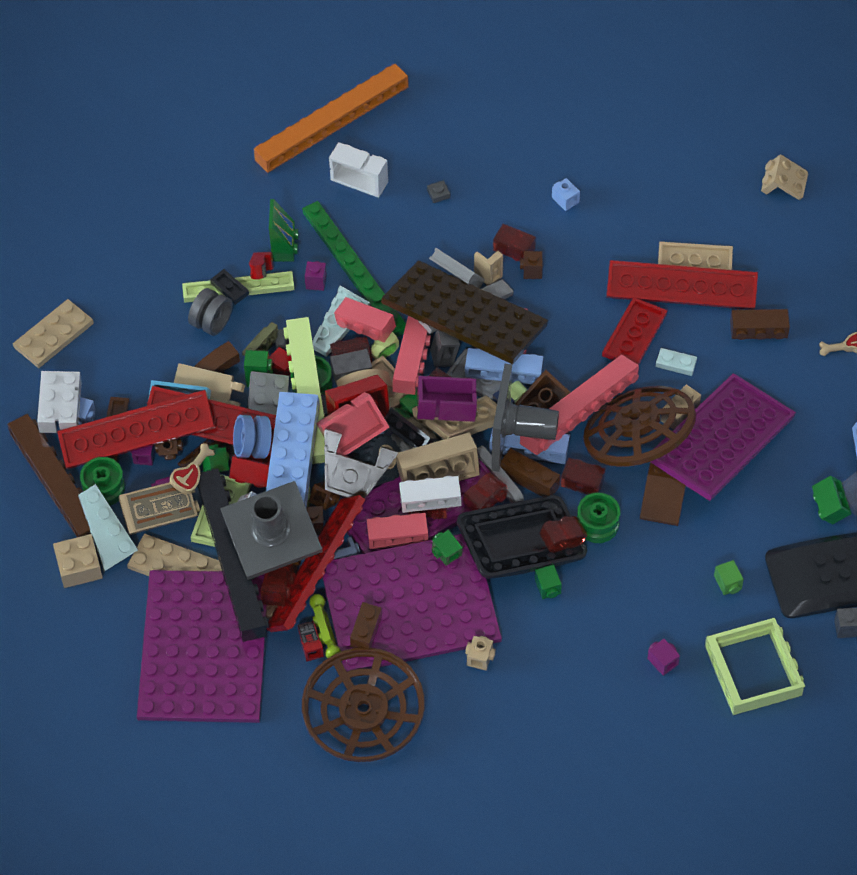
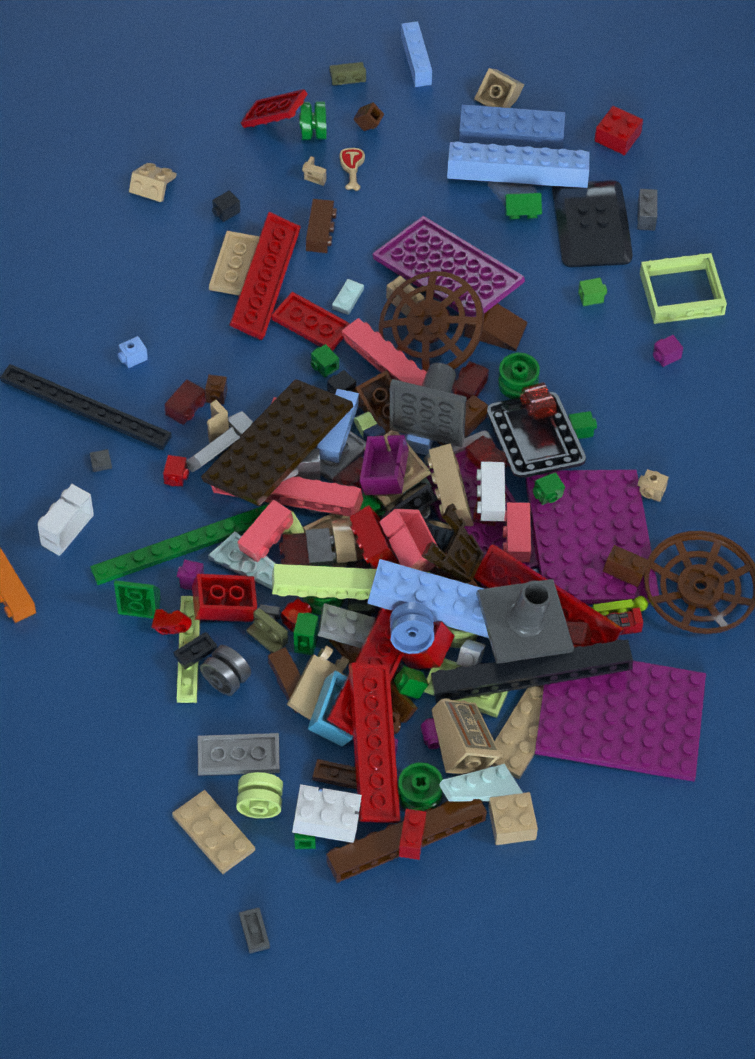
camera: 85 degrees left, 0 degrees up
(43, 472) = (412, 834): none -> red brick
(85, 354) = (259, 795): none -> yellowish green wheel
(131, 339) = (238, 754): none -> light grey plate
(187, 478) = (444, 697): tan piece -> none
(287, 296) = (224, 597): none -> red brick
(428, 245) = (175, 471): none -> red brick
(495, 170) = (86, 407): none -> black plate
(558, 365) = (341, 381): none -> black brick
(586, 349) = (324, 361): none -> green brick
(763, 240) = (226, 206): none -> black brick
(832, 306) = (314, 173): none -> tan bracket

